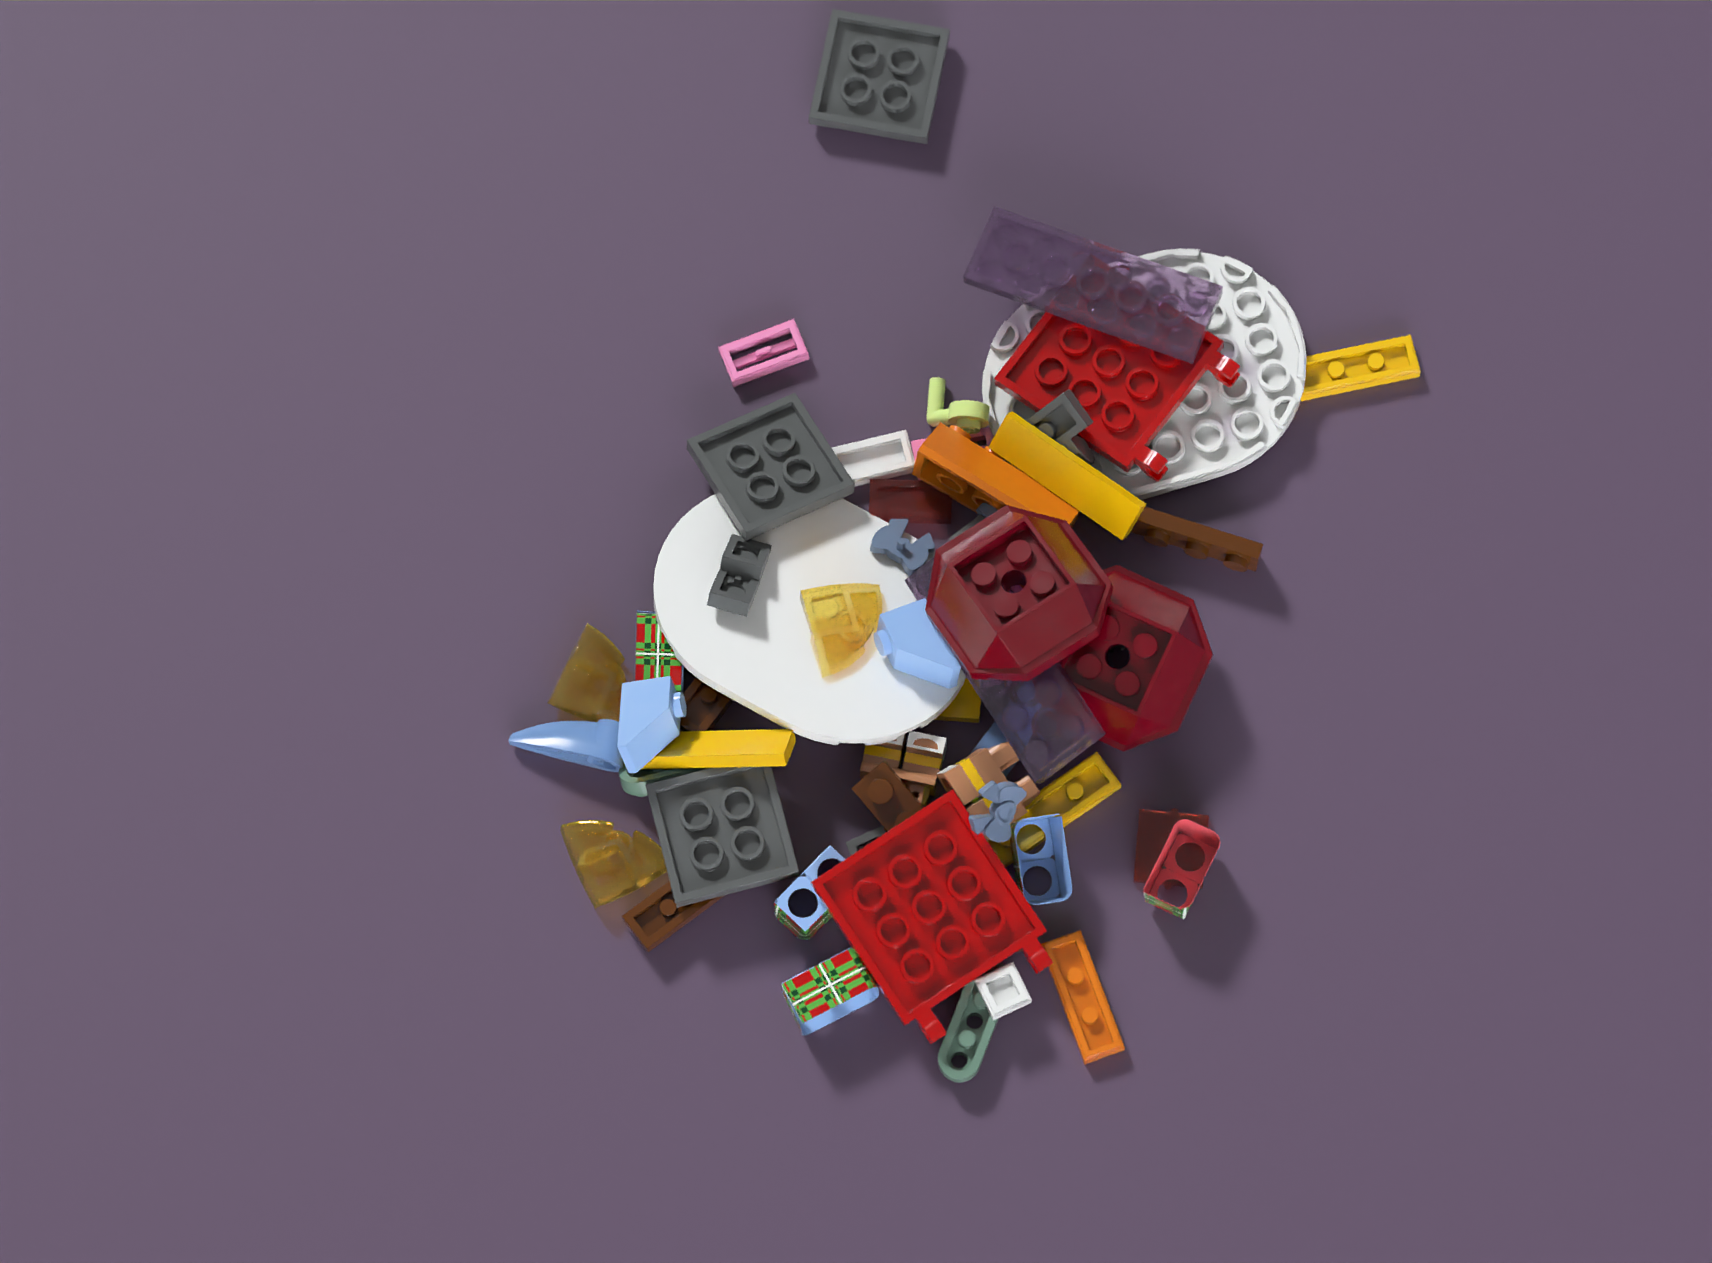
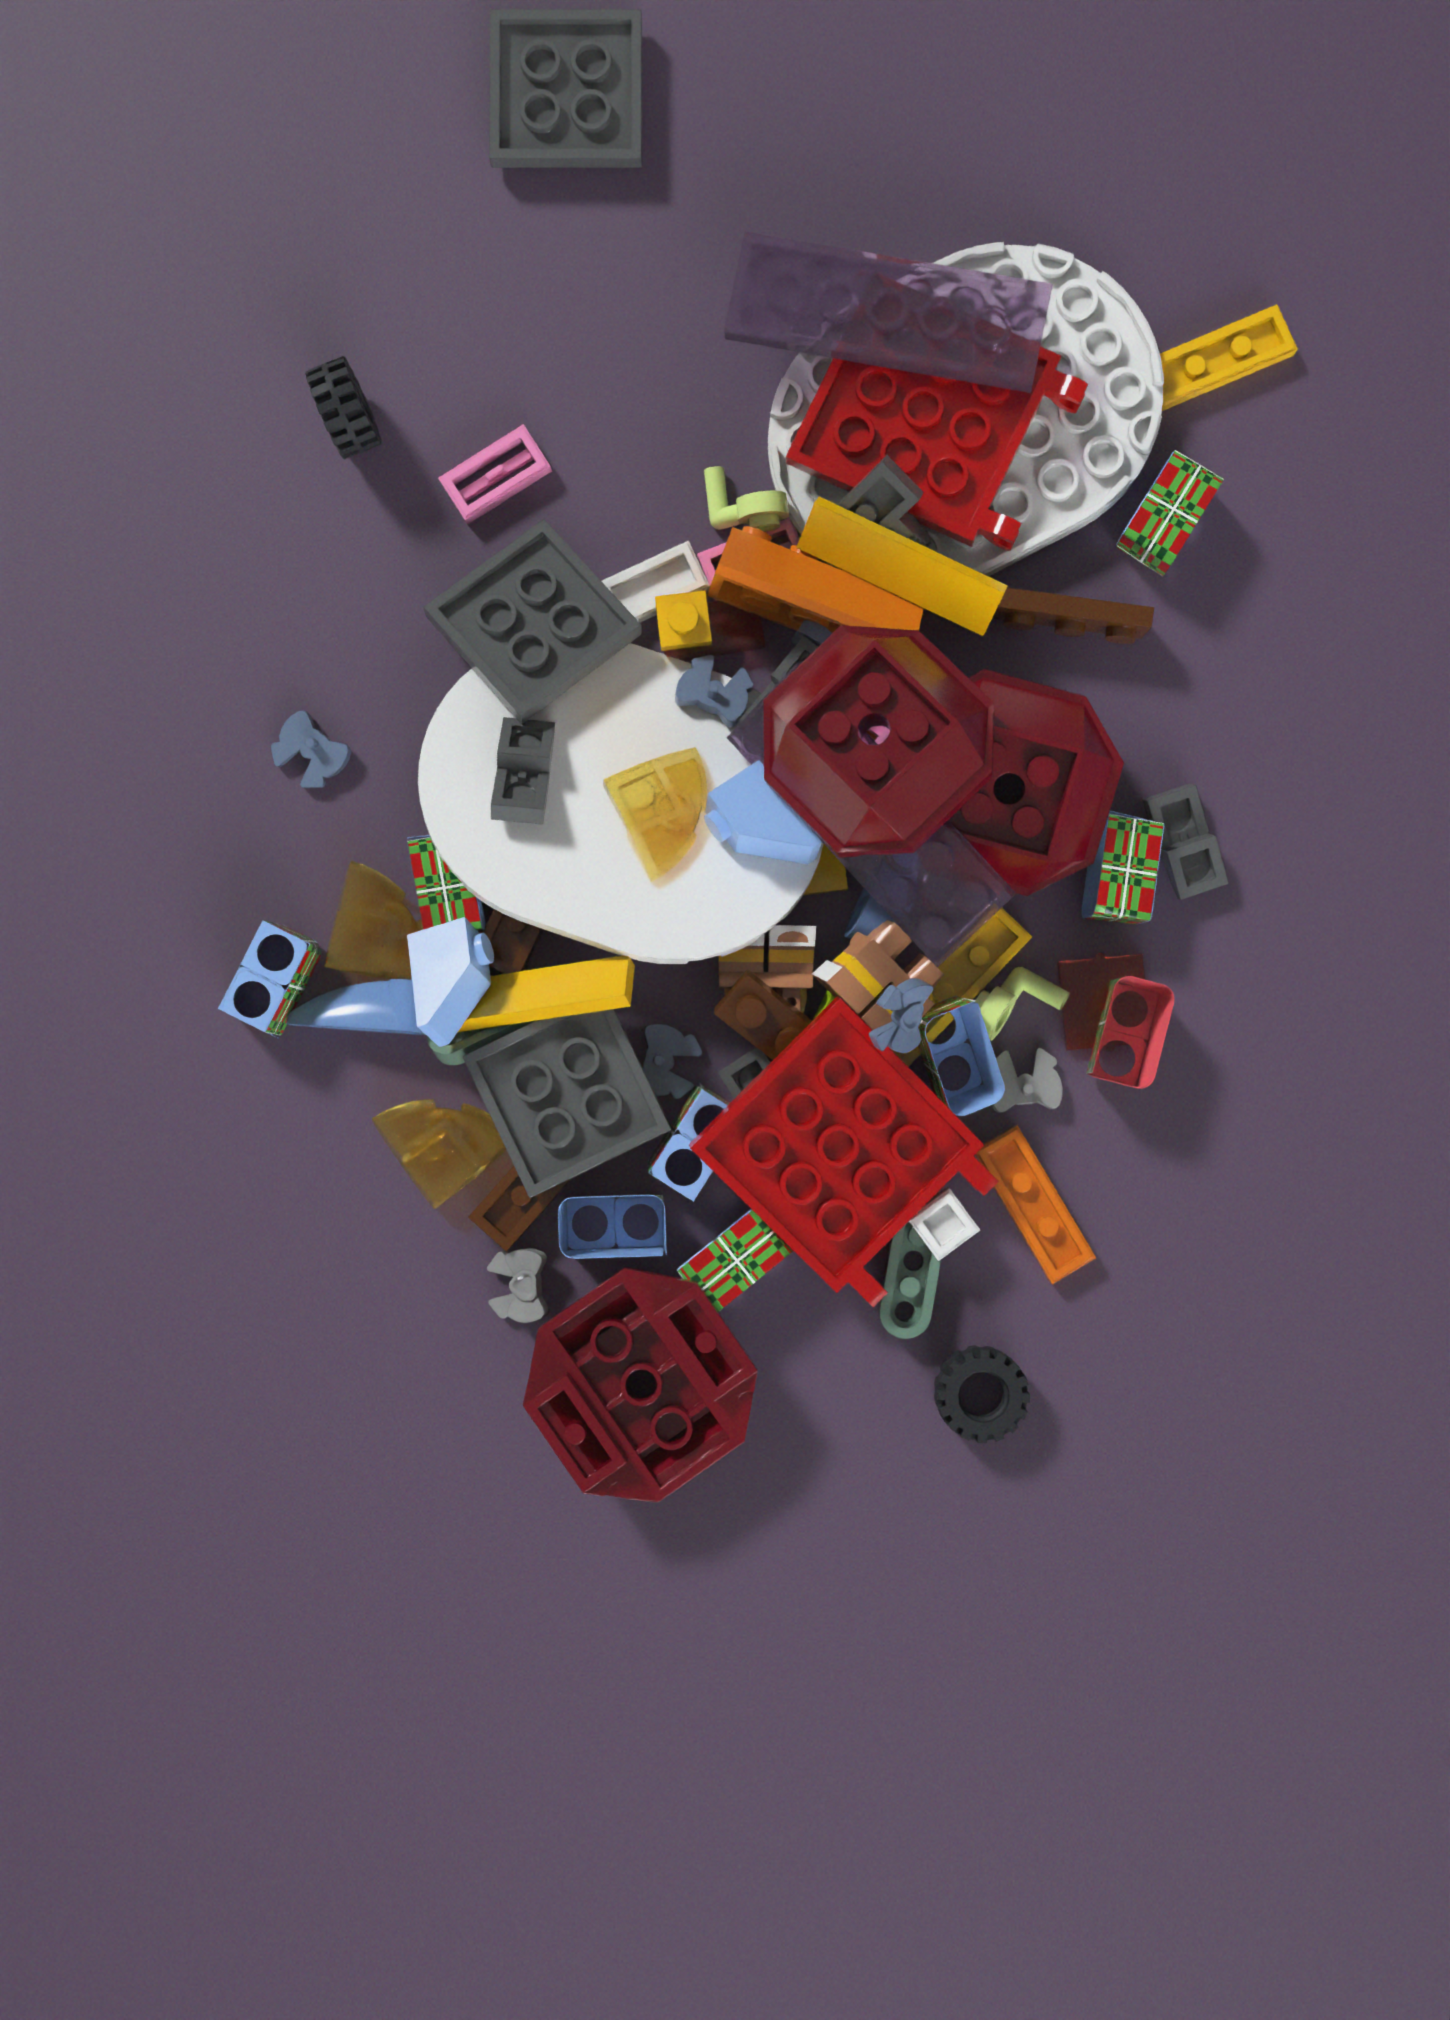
camera: 15 degrees left, 15 degrees up
(513, 717) = (281, 1000): none -> light blue piece
(583, 542) = (326, 756): none -> sand blue piece
(656, 281) = (343, 407): none -> black tyre
(657, 966) = (526, 1300): none -> light grey piece
(726, 1023) = (628, 1440): none -> dark red piece
(732, 925) = (615, 1231): none -> light blue piece
(808, 814) = (663, 1044): none -> sand blue piece
(889, 488) = (683, 620): none -> yellow plate
(1014, 1163) = (985, 1426): none -> black tyre
(1082, 831) = (1000, 1002): none -> yellowish green plate
(1105, 906) = (1041, 1088): none -> light grey piece
(1203, 743) = (1124, 872): none -> piece
(1259, 733) = (1187, 848): none -> dark grey slope
(1292, 477) = (1169, 512): none -> piece

